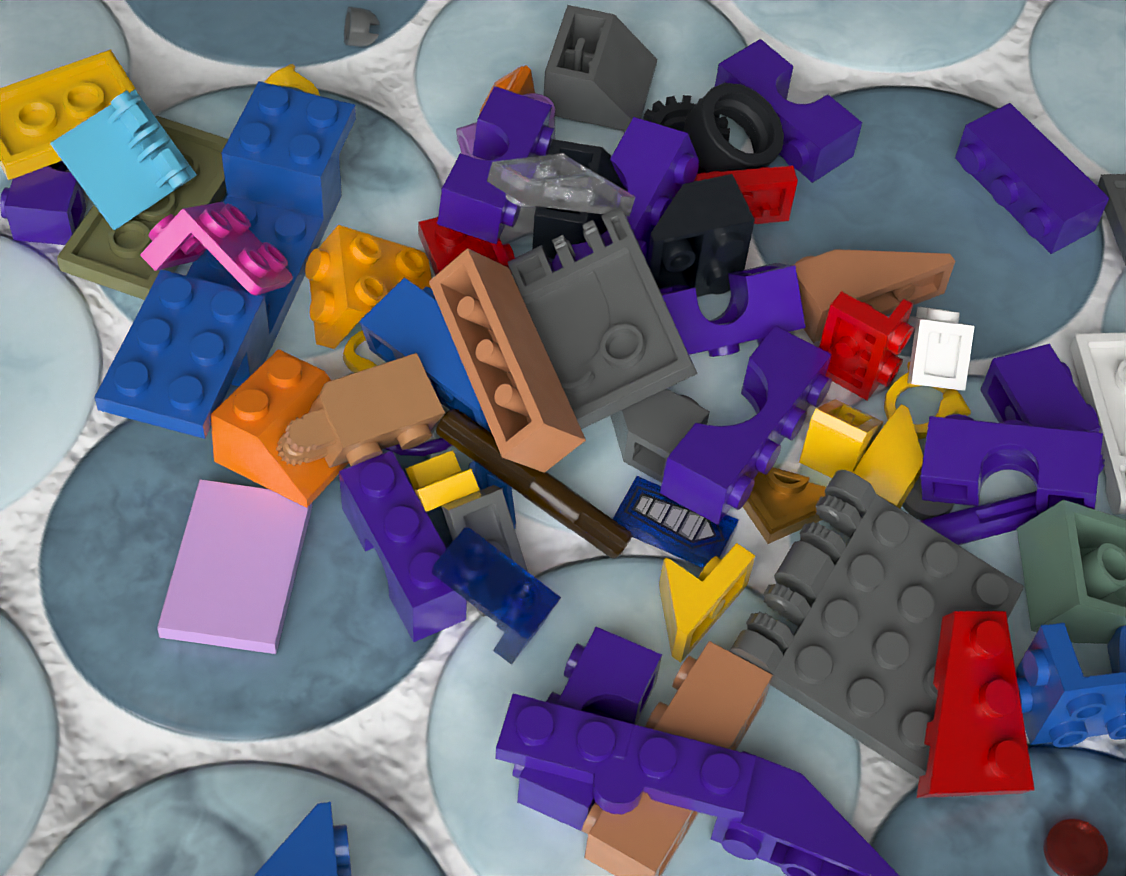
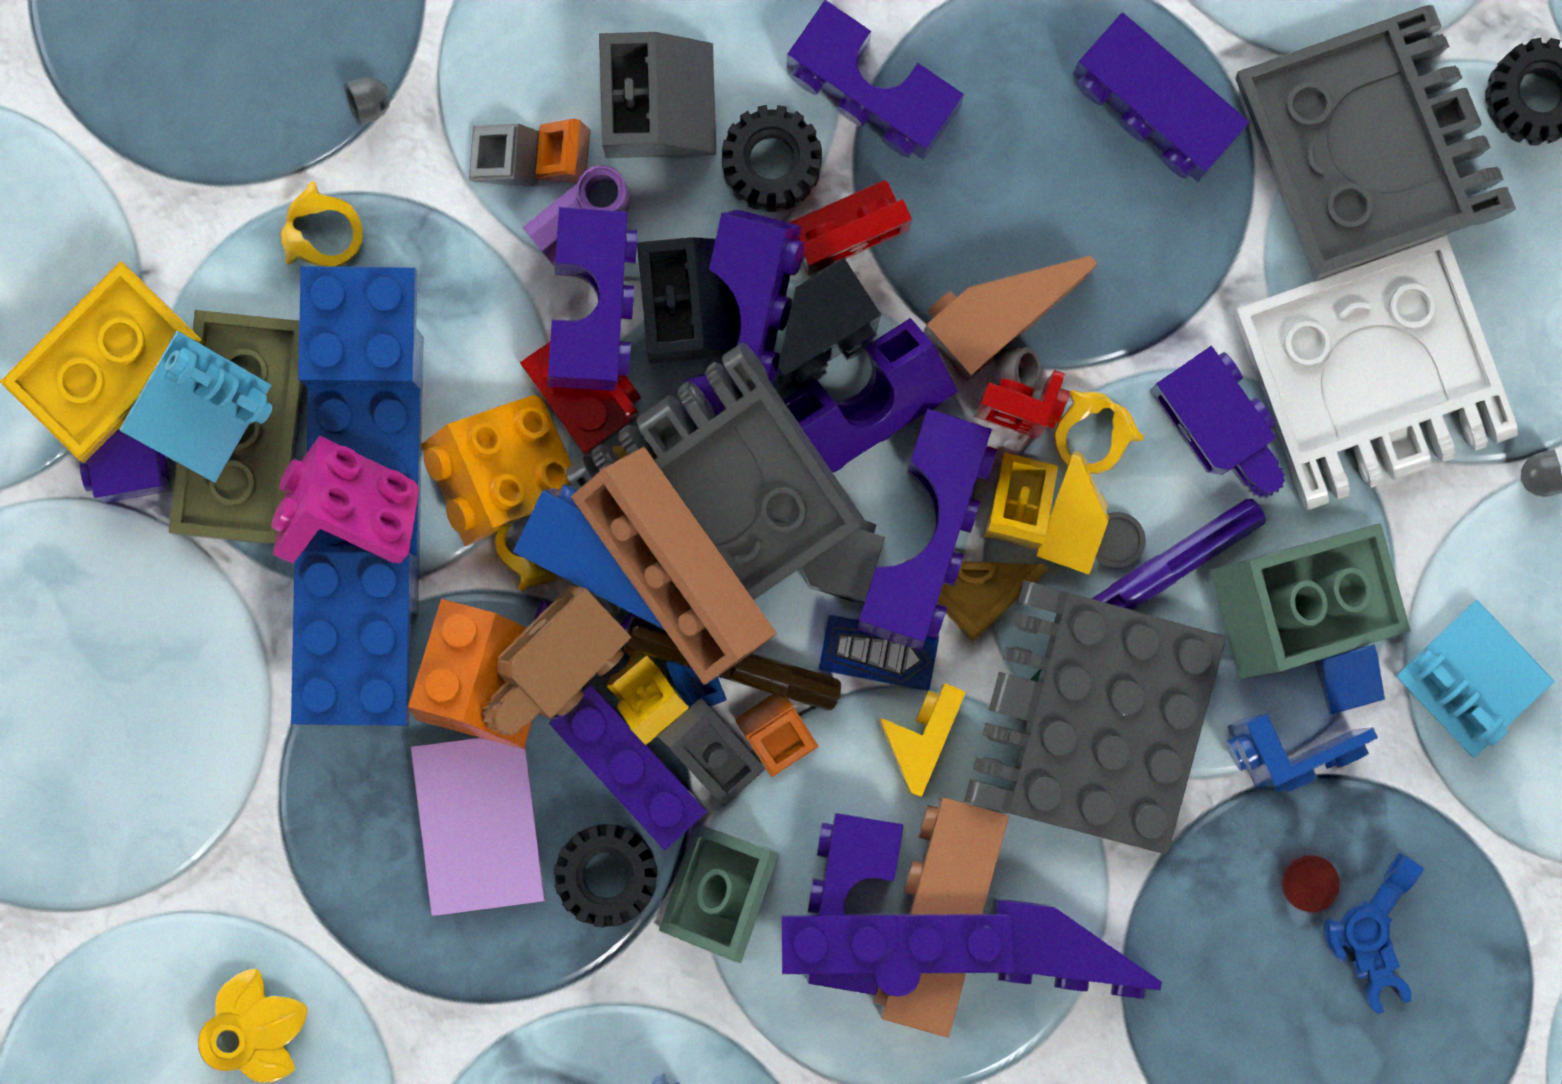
camera: 15 degrees left, 30 degrees up
(338, 608) = (570, 875): none -> black tyre
(459, 91) = (504, 154): none -> dark grey slope
(459, 685) = (718, 892): none -> sand green slope
(497, 589) = (733, 806): clear blue bracket -> none
(557, 184) = (667, 334): clear wing -> none
(559, 564) = (776, 733): none -> orange slope
(748, 111) = (862, 142): black tyre -> none
(940, 349) = (1097, 372): white bracket -> none
(967, 452) = (1244, 509): dark purple arch -> none
(978, 715) = (1204, 794): red wing -> none

